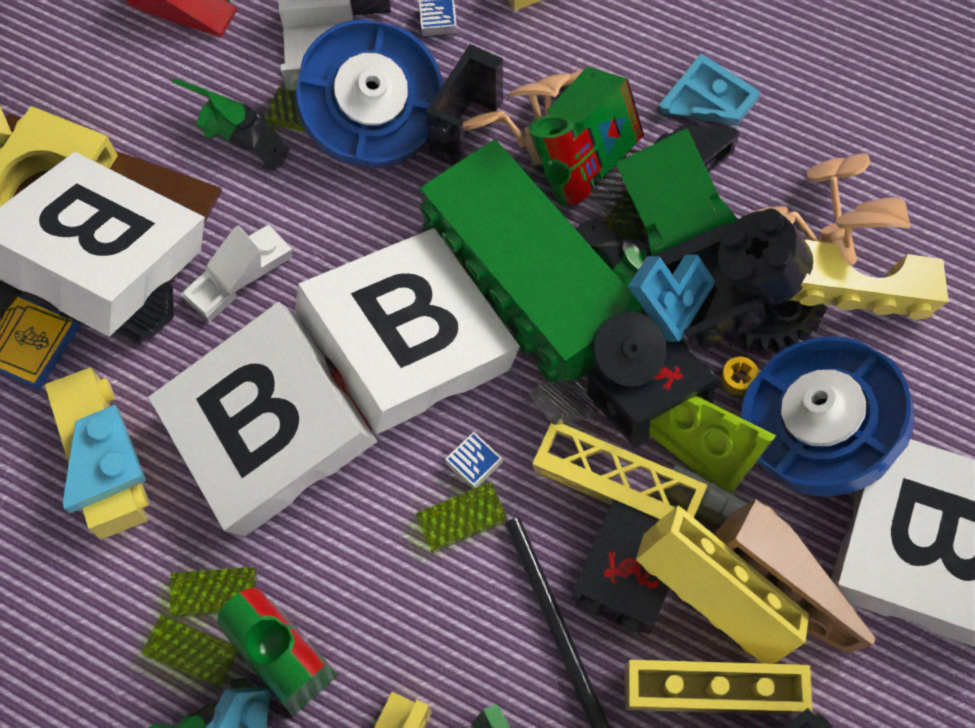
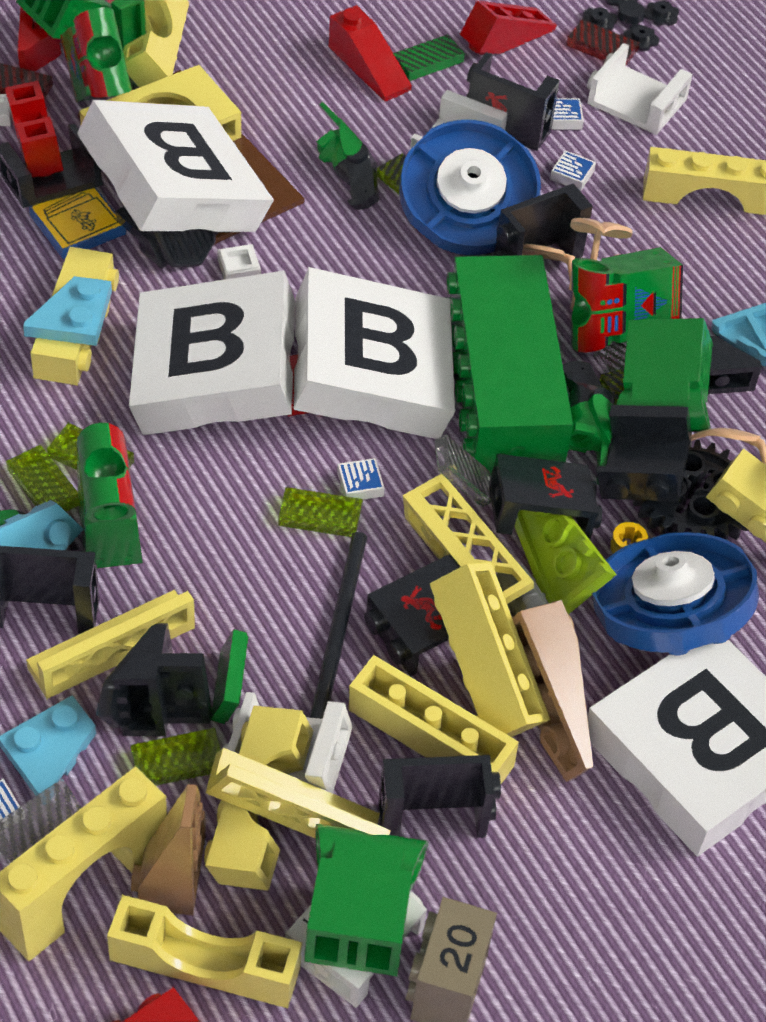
camera: 25 degrees right, 15 degrees down
(247, 257) = (284, 250): white slope -> none
(629, 349) = (538, 448): black piece -> none
(670, 298) = (602, 440): dark azure plate -> none
(765, 256) = (701, 441): black brick -> none

